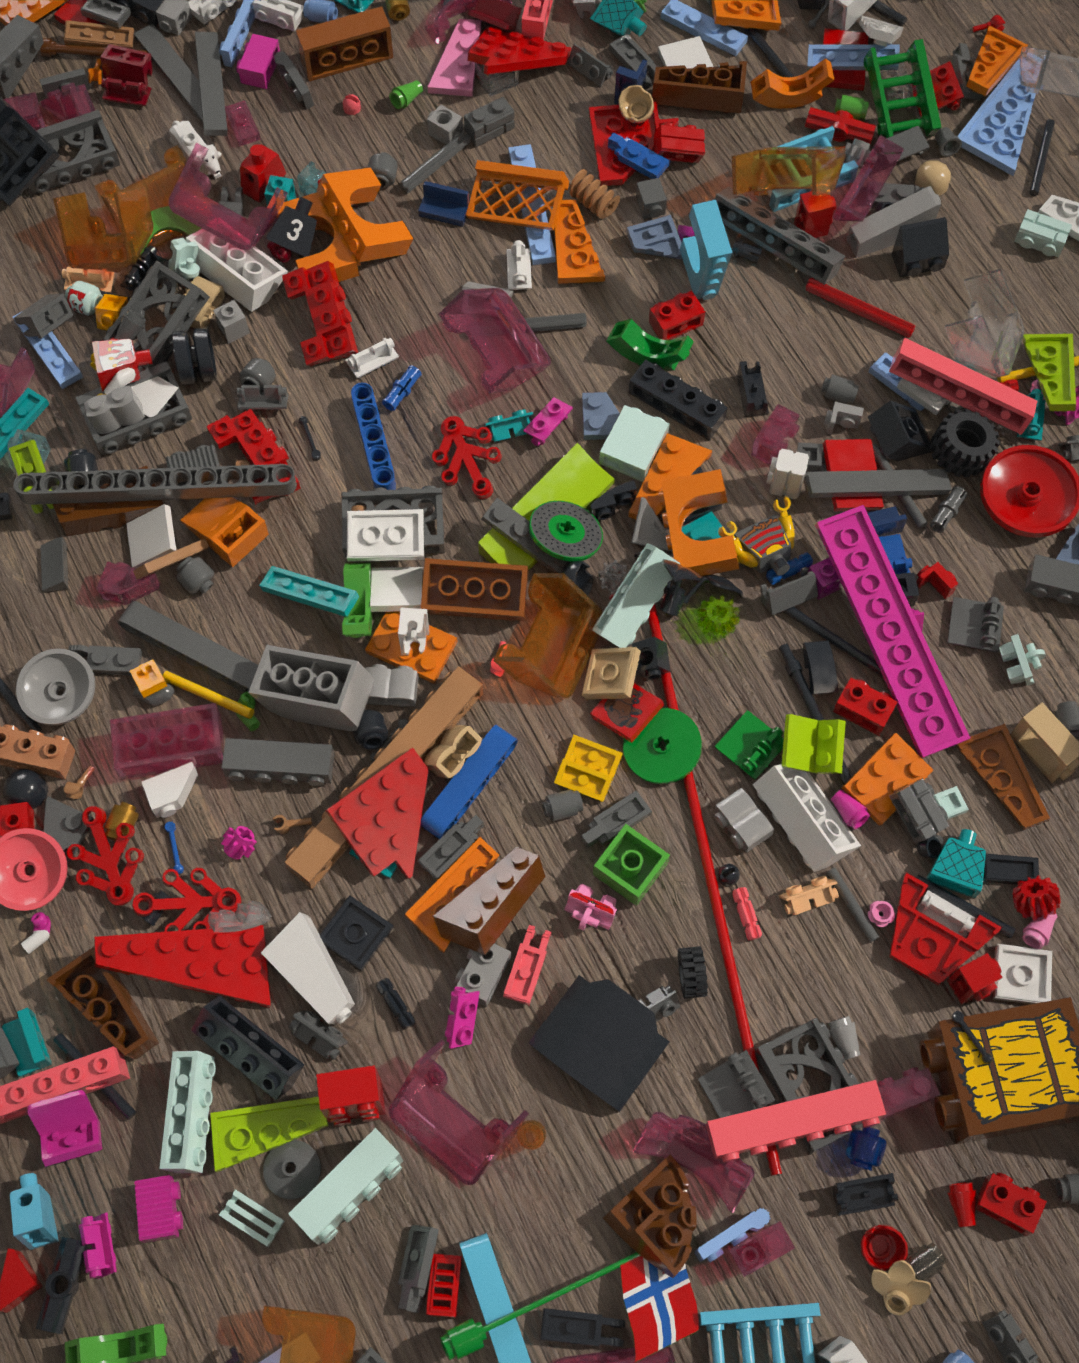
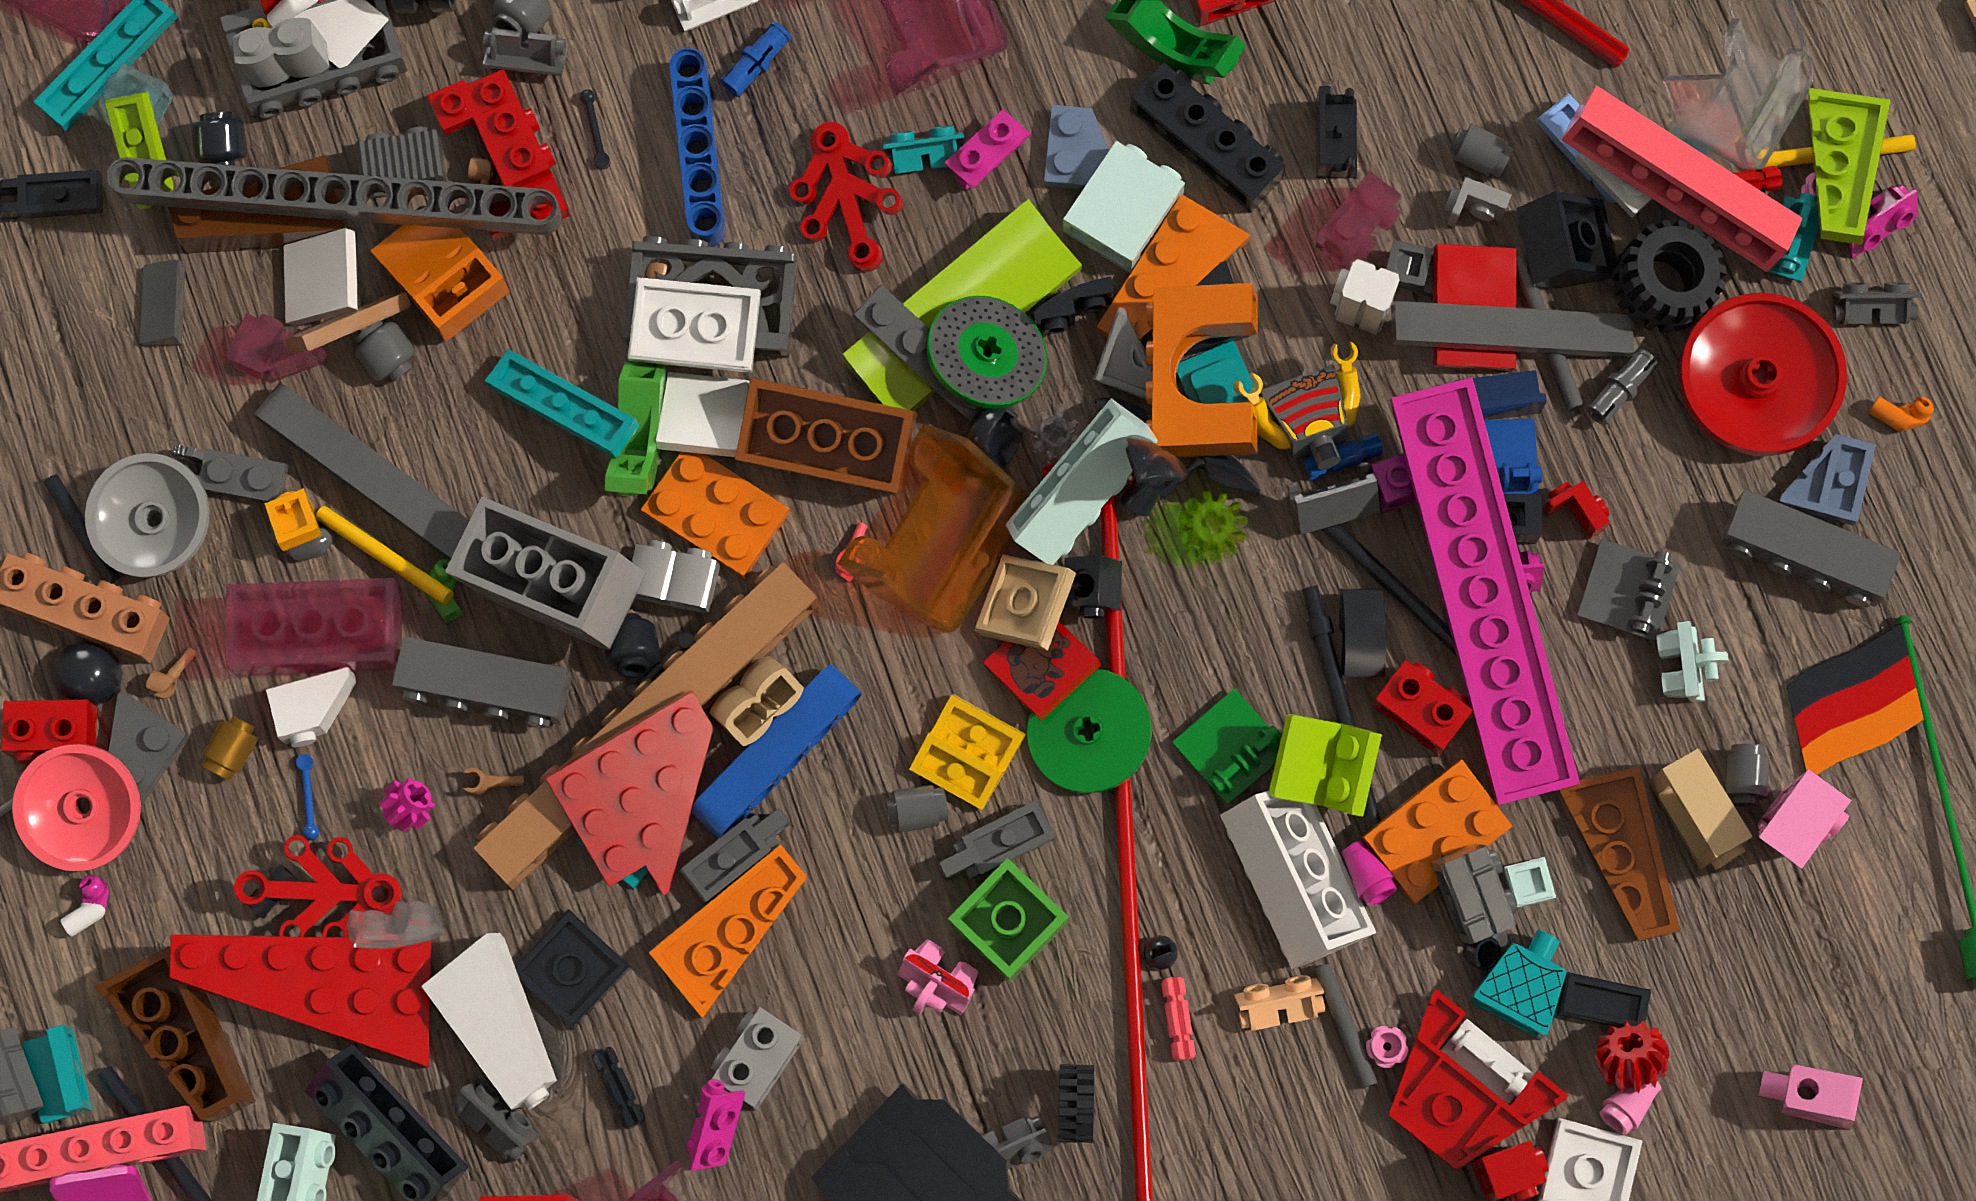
camera: 10 degrees right, 10 degrees up
(108, 859) = (204, 806): red plant -> none
(412, 628) = (716, 491): white hinge -> none
(491, 902) = (783, 954): reddish brown wedge -> none
(526, 968) = (825, 1060): coral hinge -> none
(743, 820) = (1196, 870): light grey brick -> none
(974, 911) = (1521, 1051): black bar -> none

